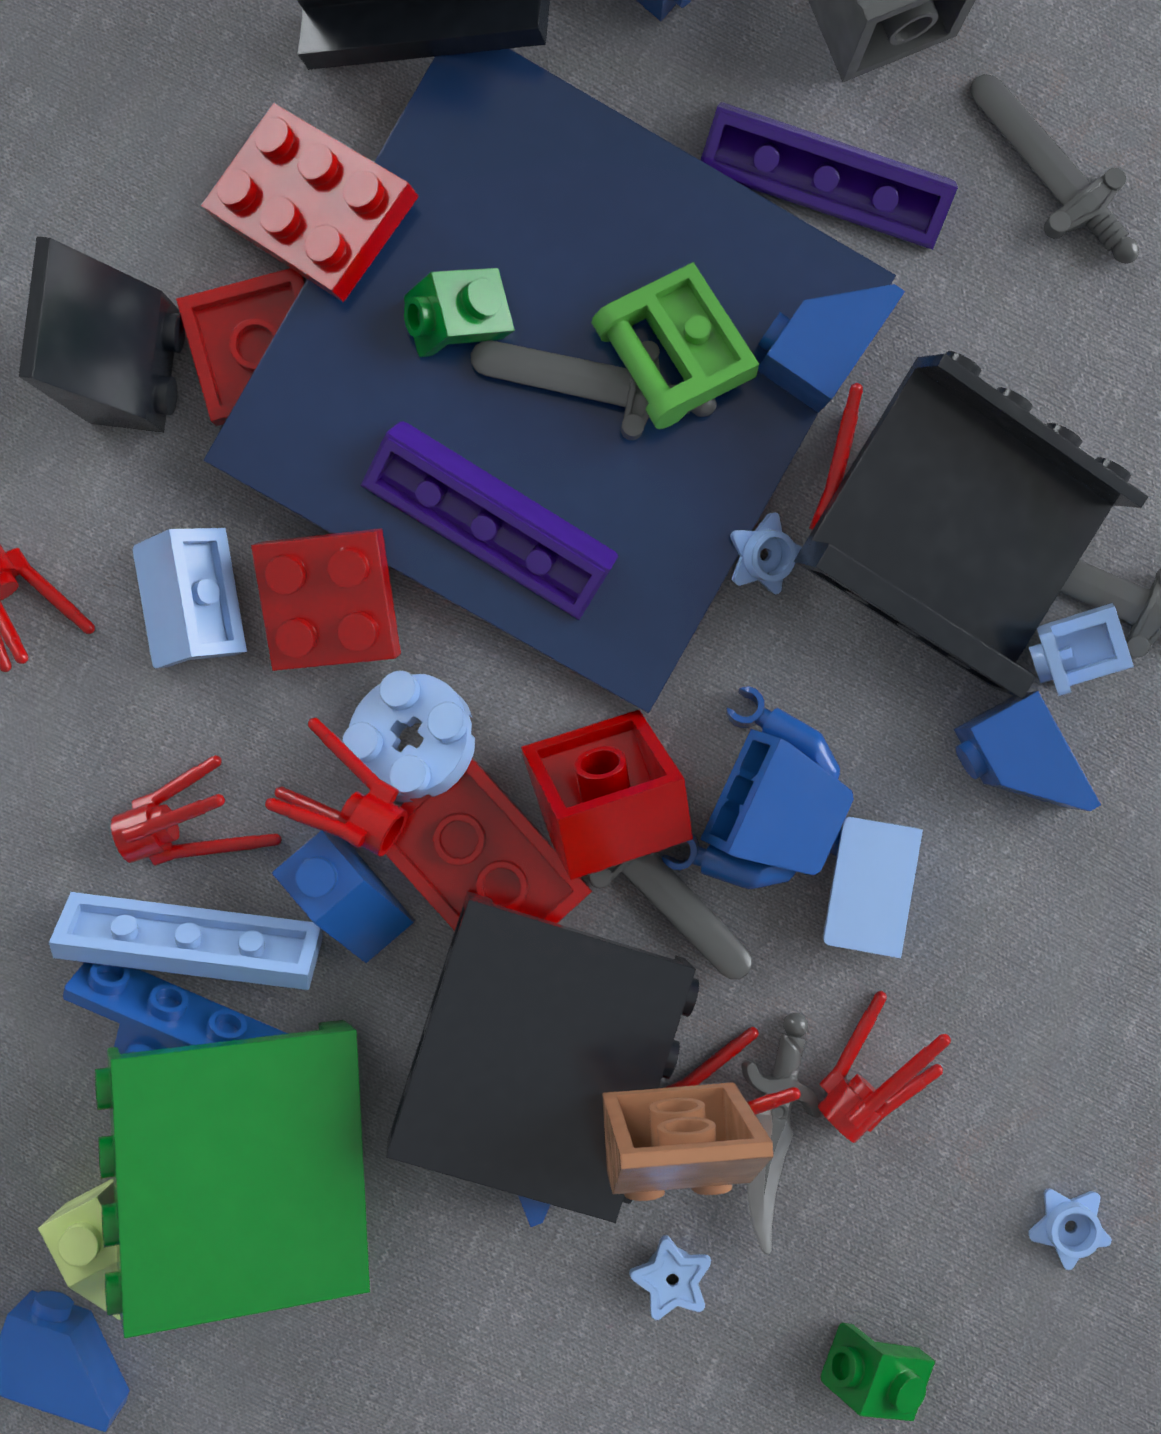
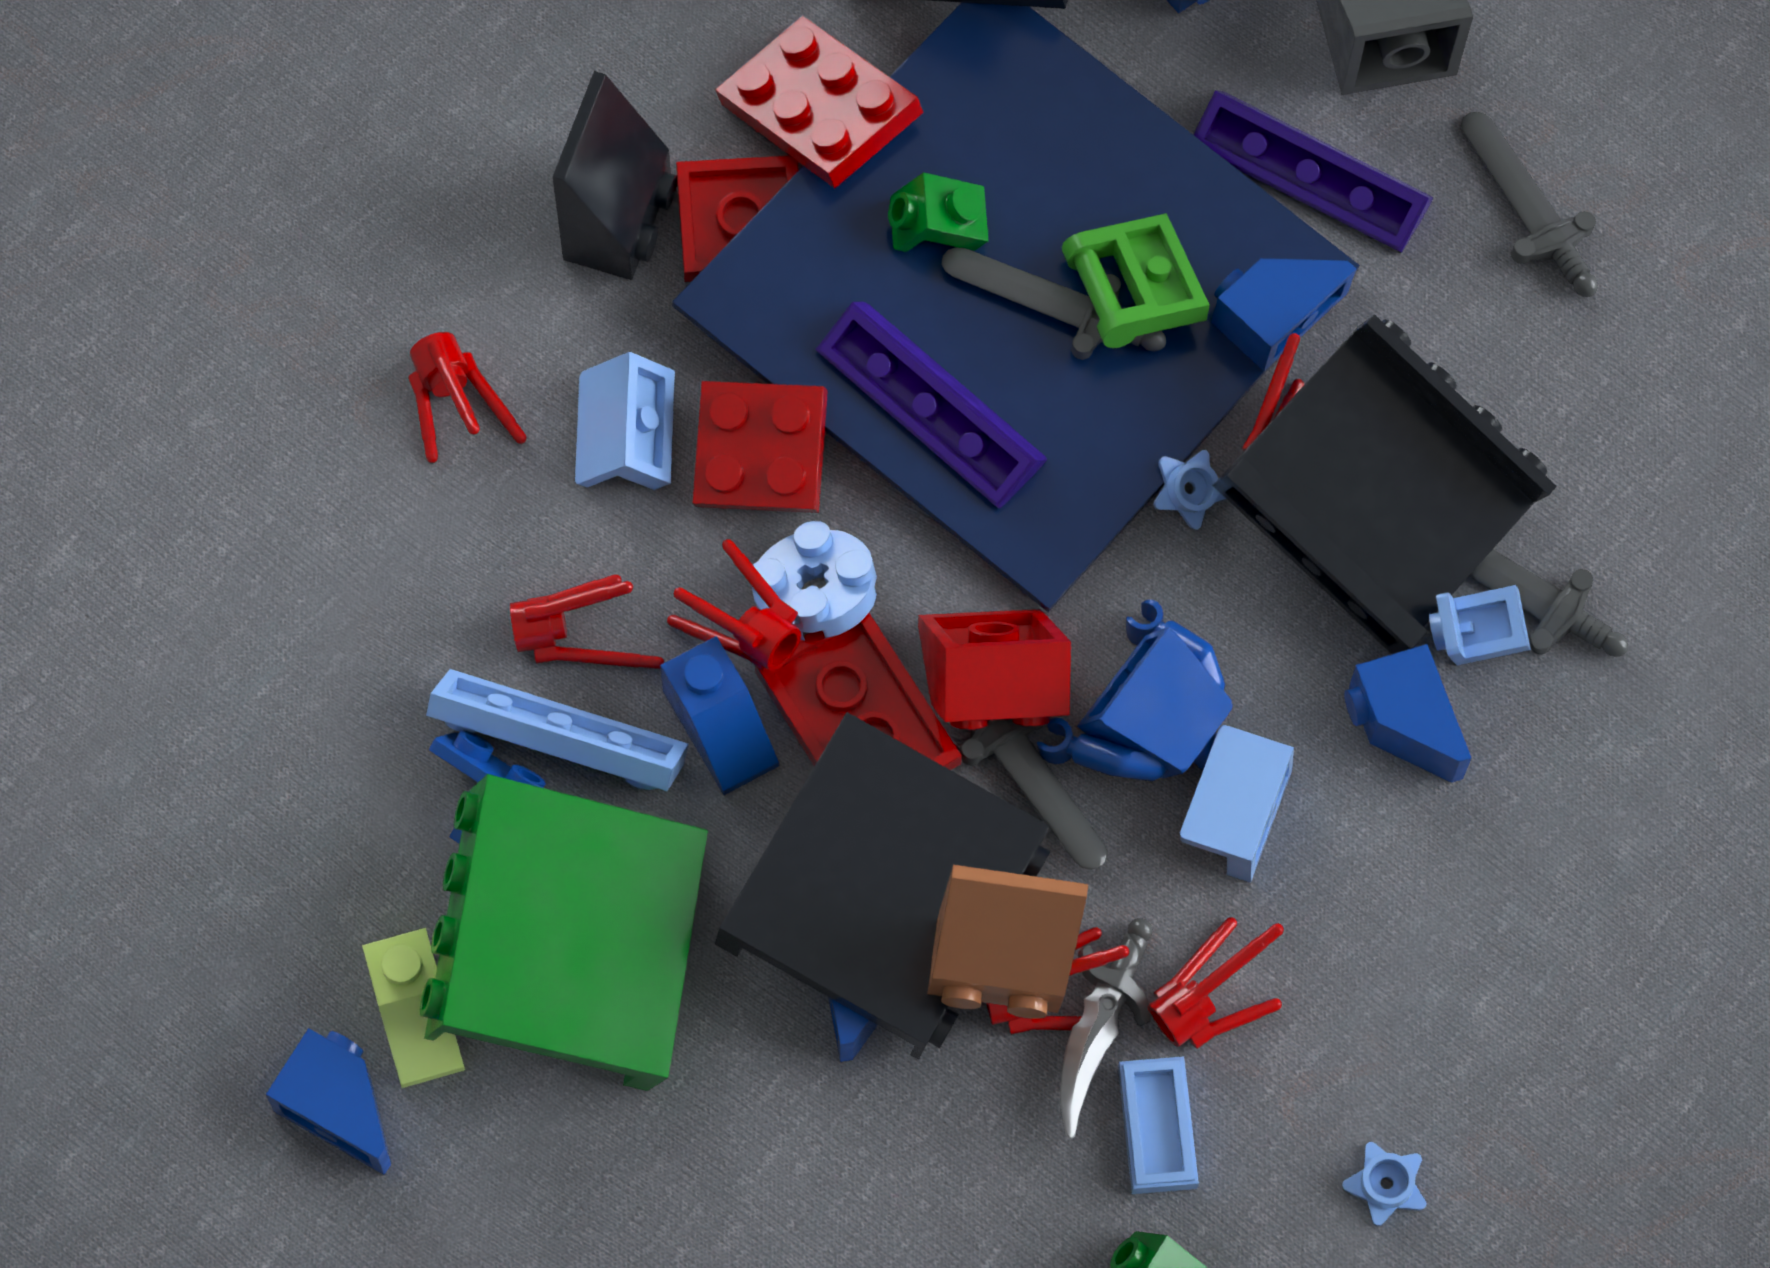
camera: 15 degrees right, 20 degrees down
(666, 1261) = (959, 1164): light blue plate -> none
(846, 1215) = (1158, 1125): none -> light blue tile

